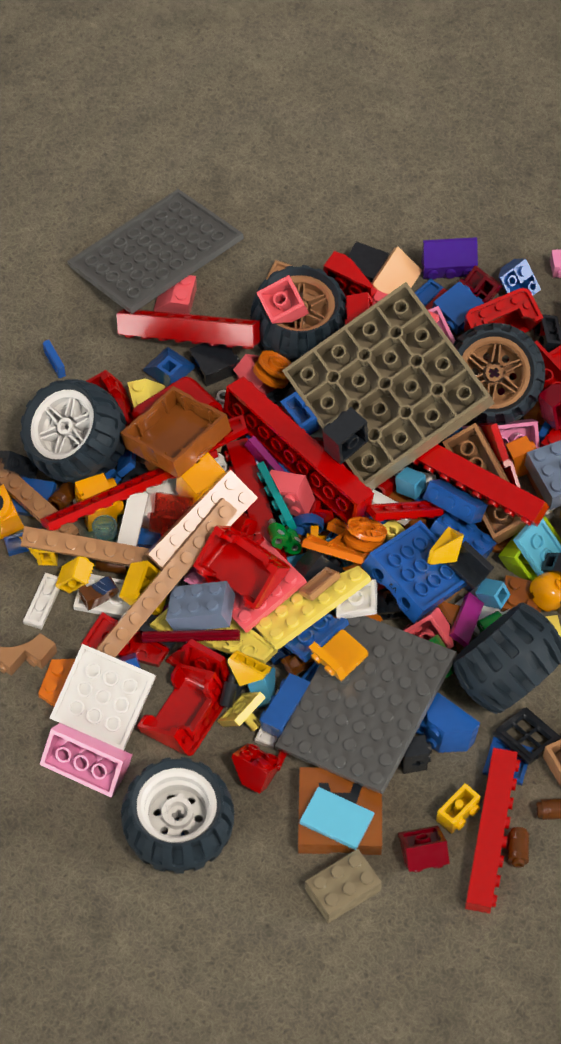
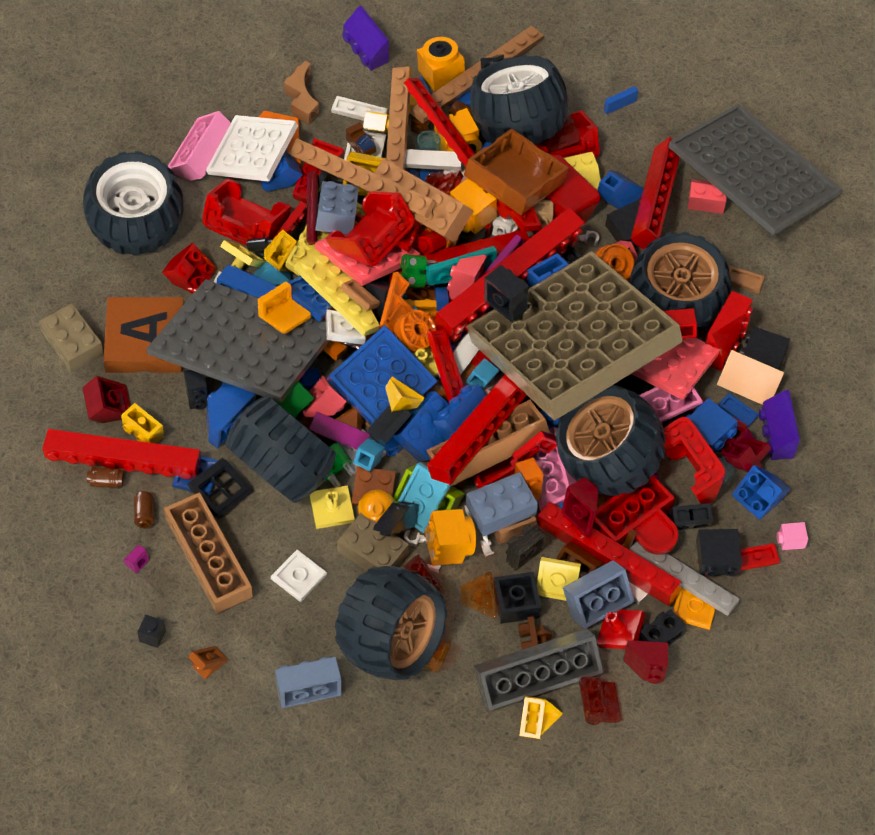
camera: 85 degrees right, 0 degrees up
(282, 301) = (676, 251): coral slope -> none
(337, 818) = (129, 324): medium azure tile -> none

